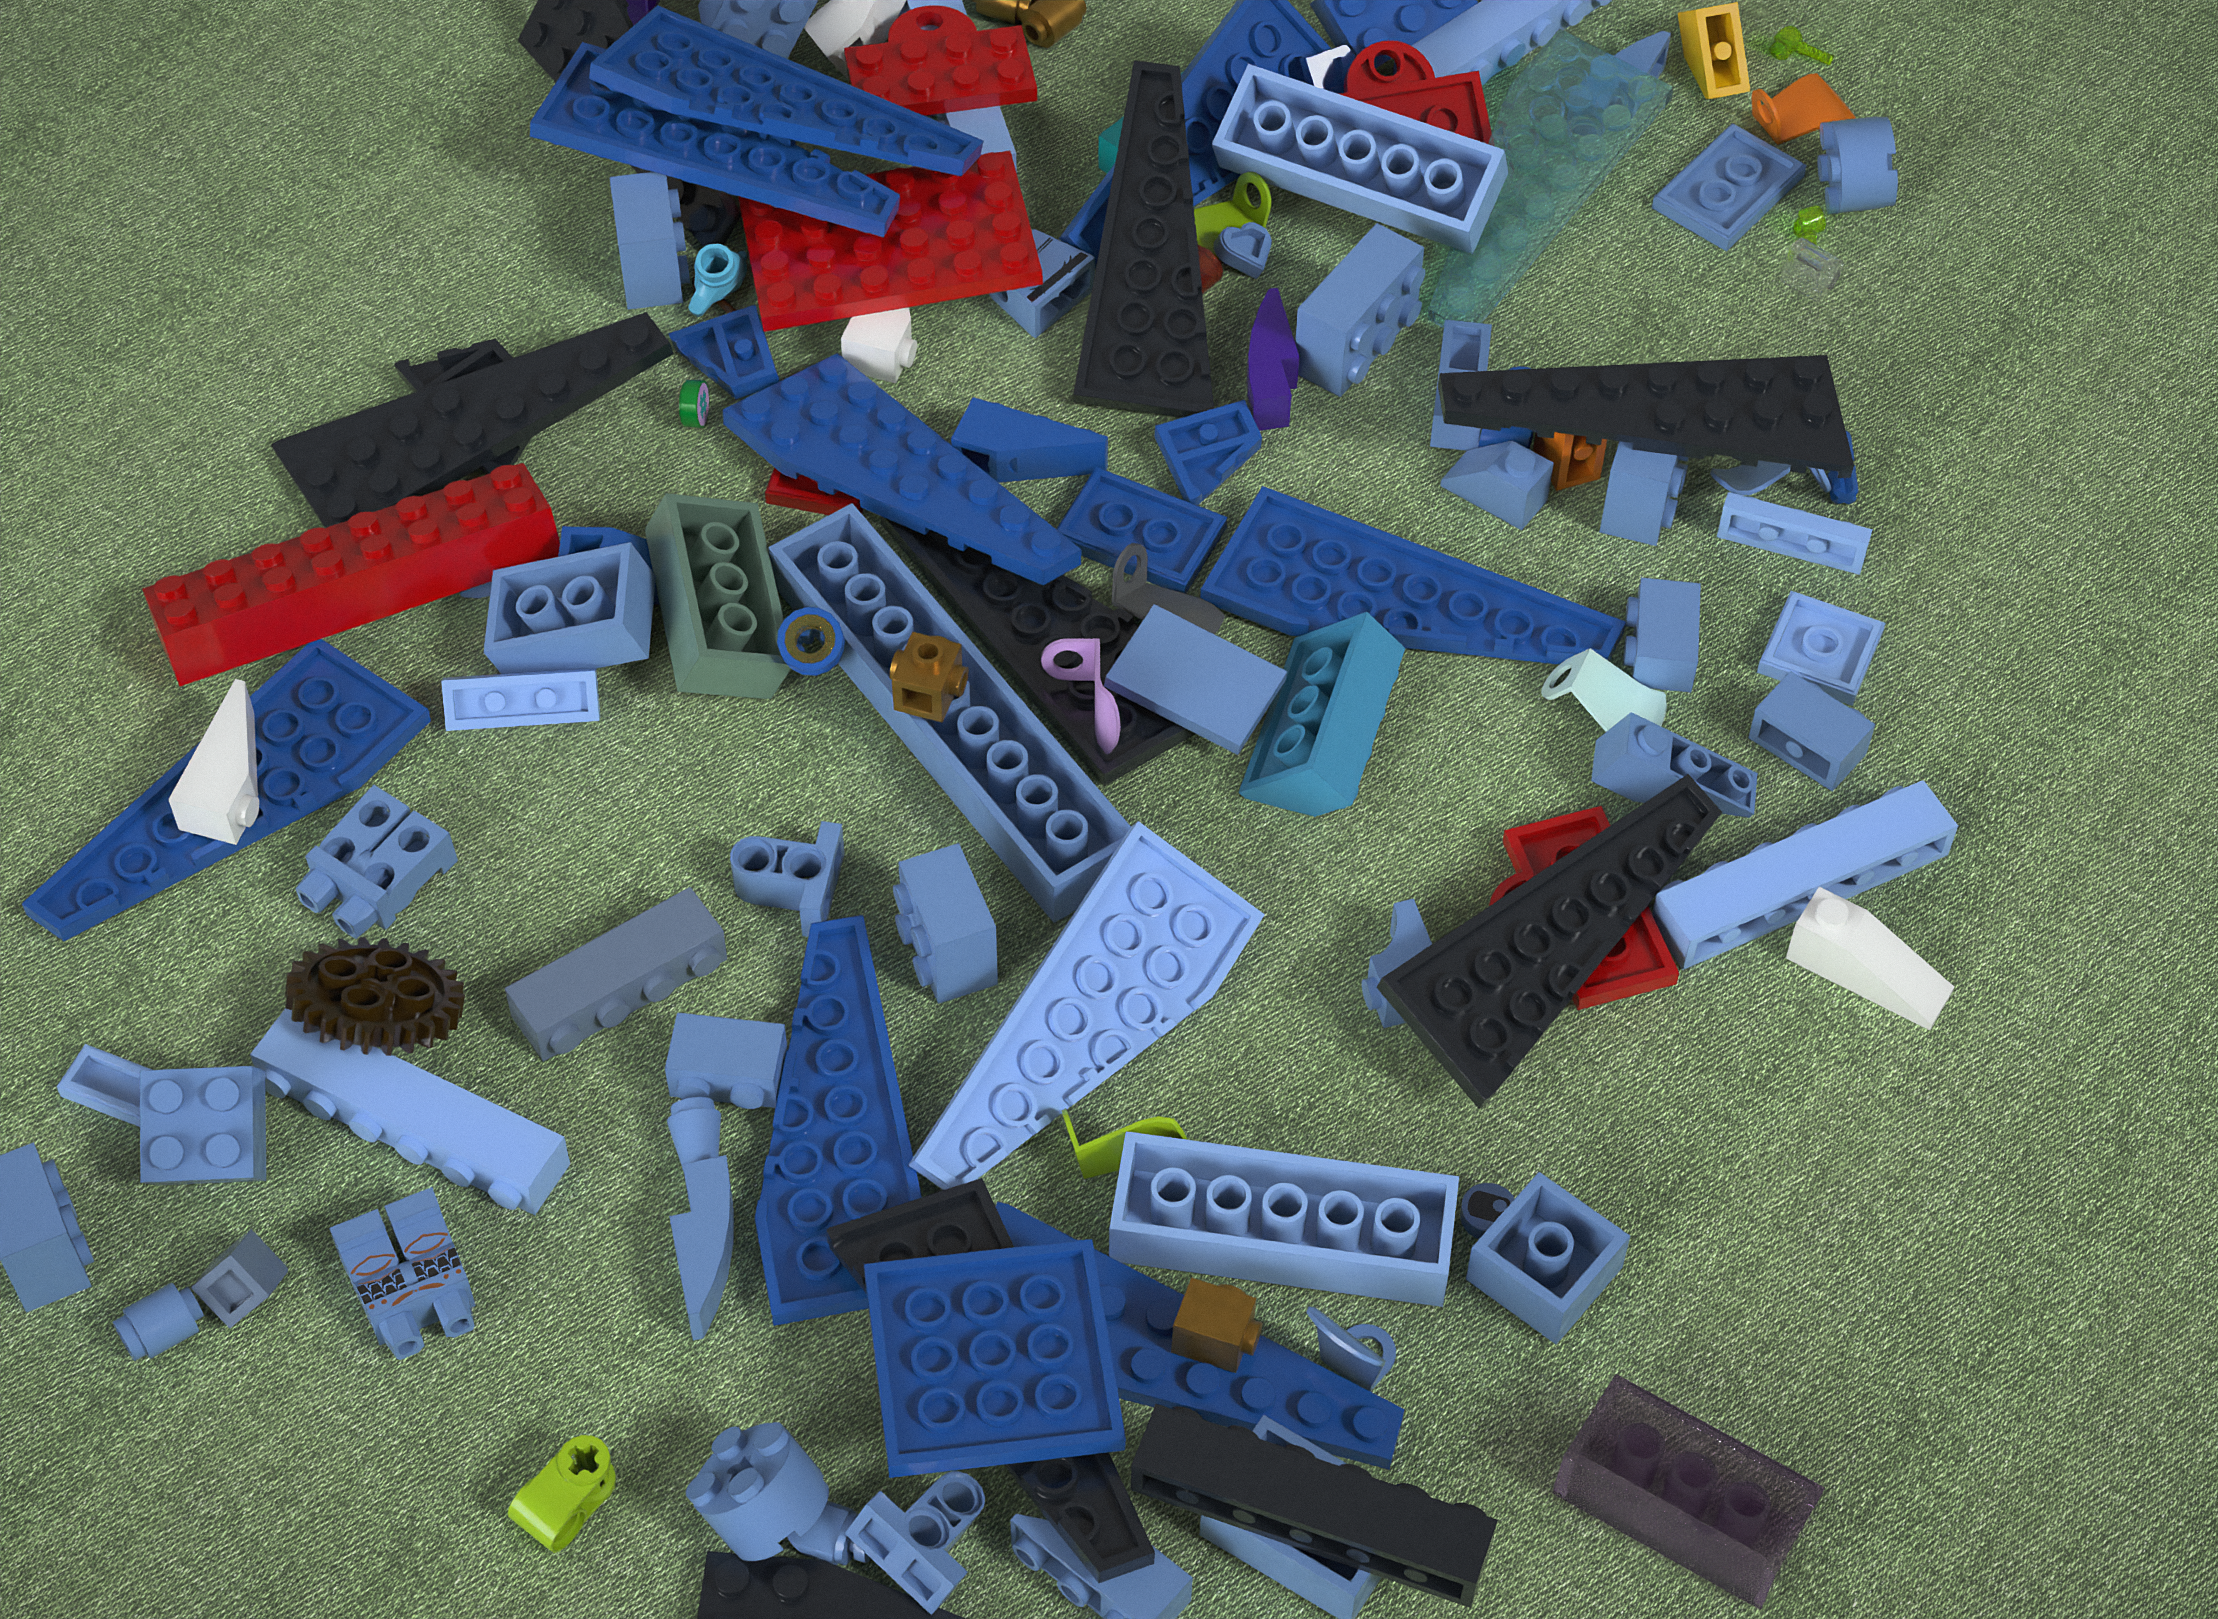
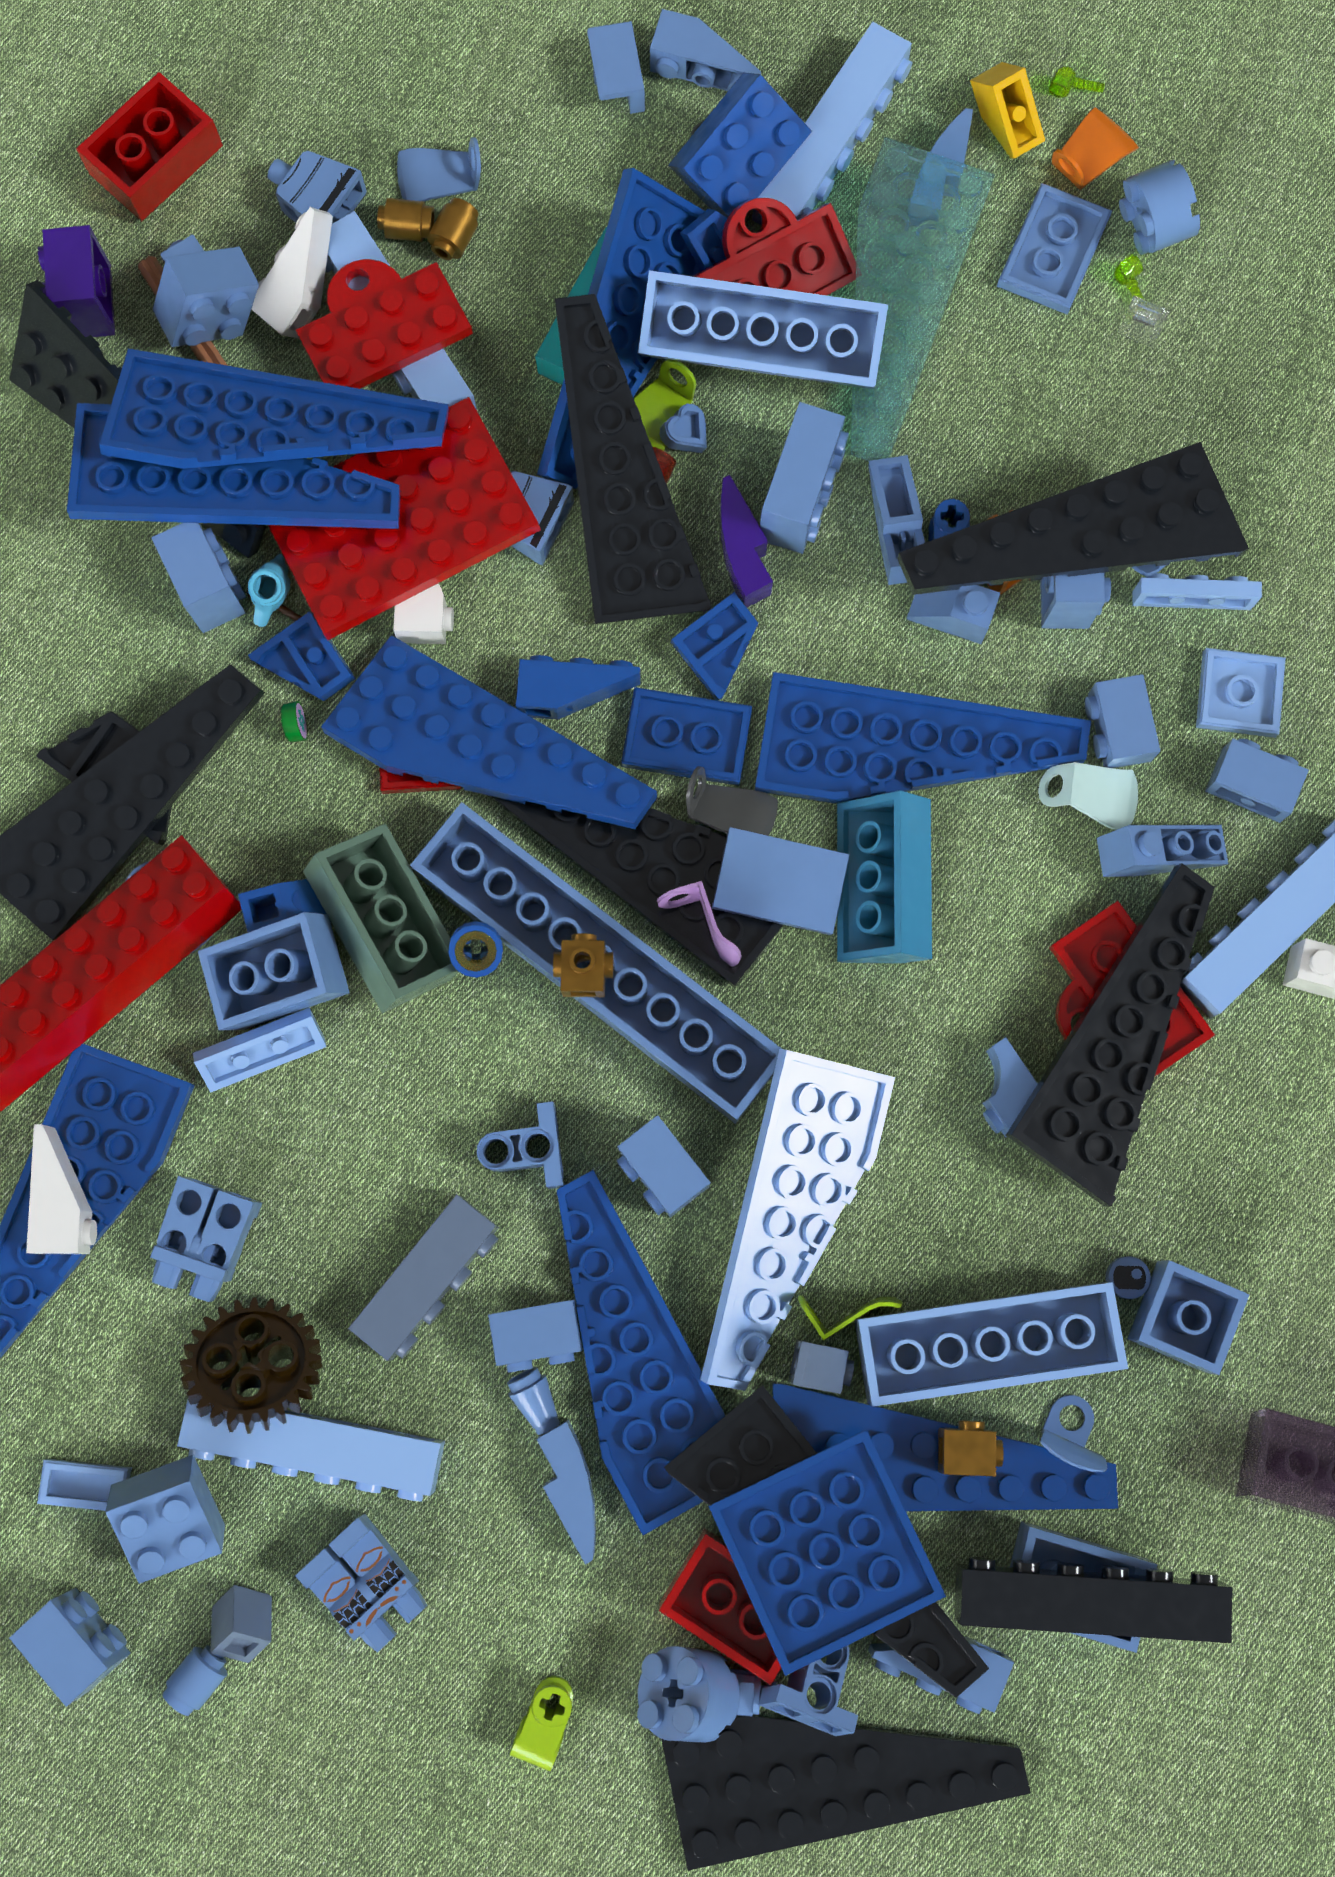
camera: 15 degrees left, 25 degrees up
(833, 1410) = (715, 1607): none -> red brick
(1059, 1182) = (820, 1367): none -> sand blue slope

